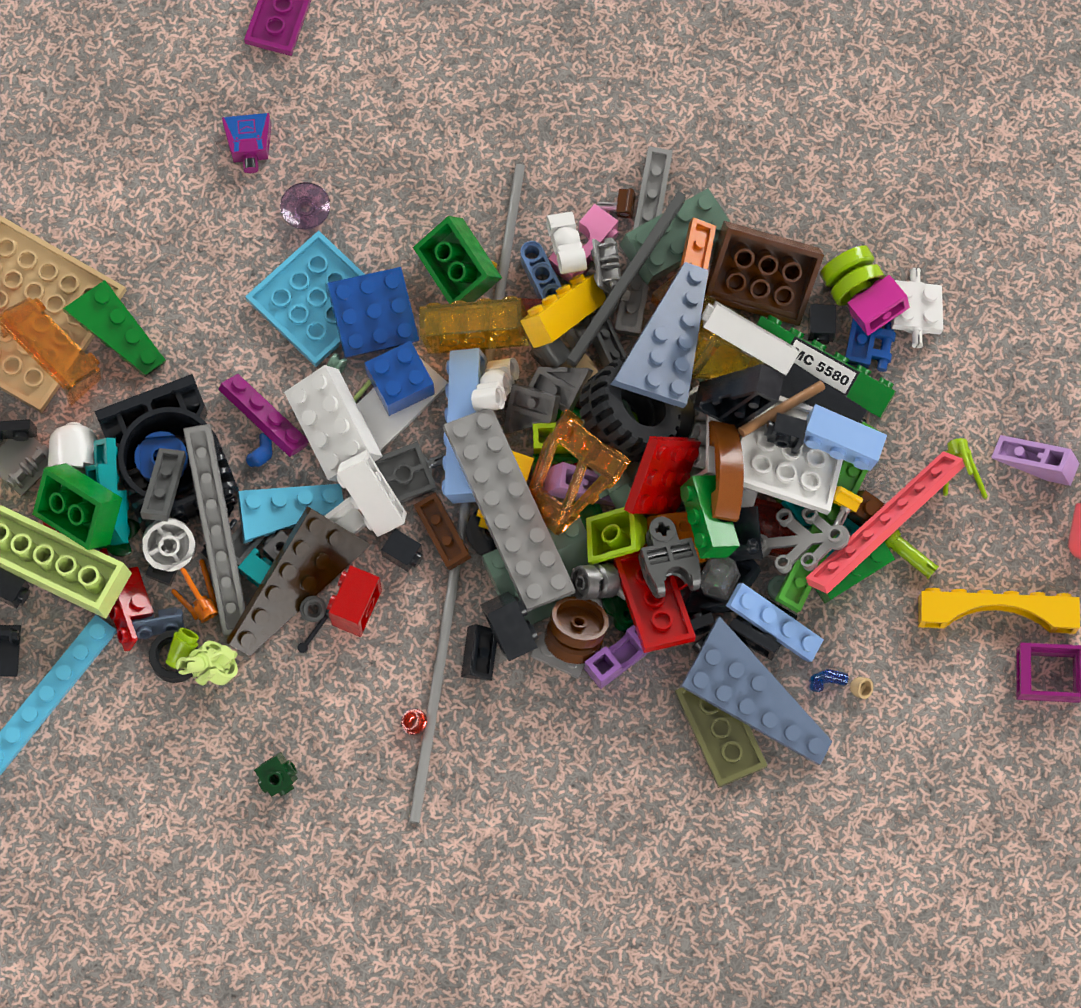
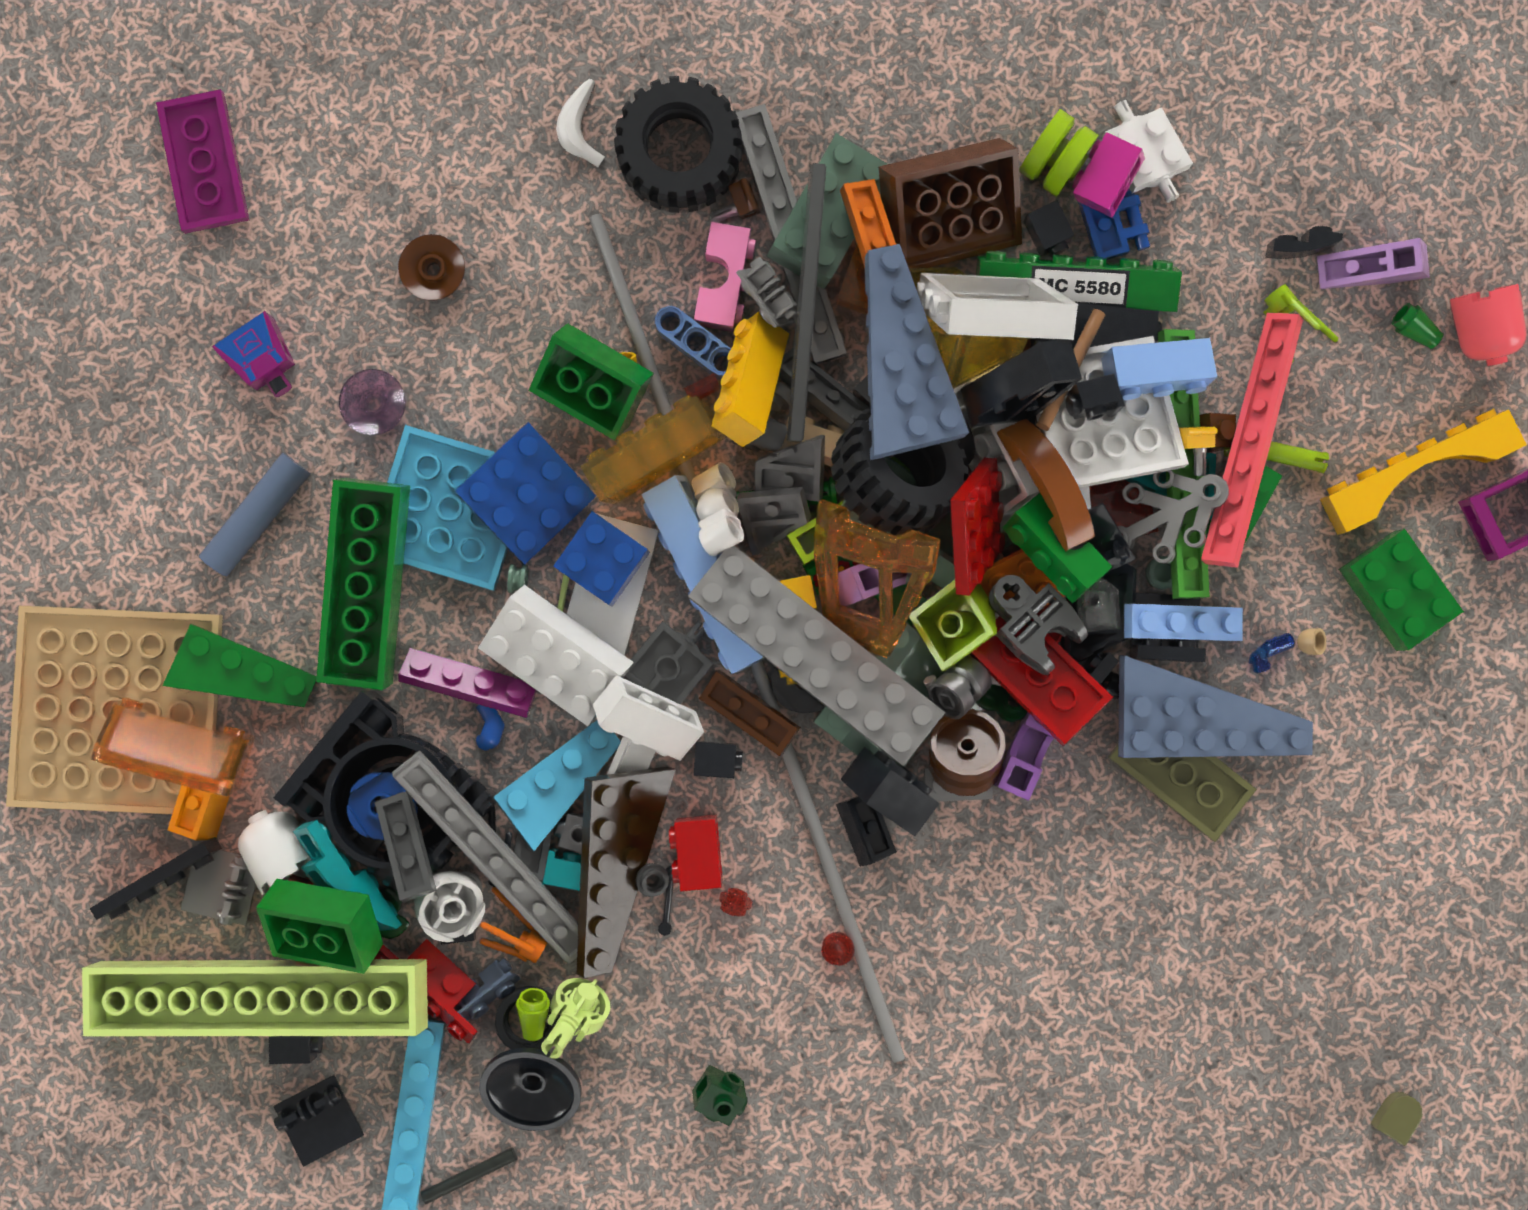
camera: 25 degrees left, 15 degrees up
(40, 400) = (197, 814): none -> light orange panel
(72, 742) = (468, 1175): none -> pearl dark grey bar
(136, 702) = (530, 1089): none -> black dish
(186, 237) = (254, 515): none -> sand blue brick
(232, 311) = (362, 583): none -> green brick
(361, 652) = (735, 902): none -> clear red plate
(393, 132) = (423, 253): none -> reddish brown dish
(535, 101) = (569, 125): none -> white piece
(566, 242) = (707, 292): white piece -> none
(595, 175) = (671, 102): none -> black tyre
(941, 682) = (1401, 590): none -> green brick
(1003, 423) = (1312, 242): none -> black slope
(1046, 515) = (1417, 326): none -> green cone

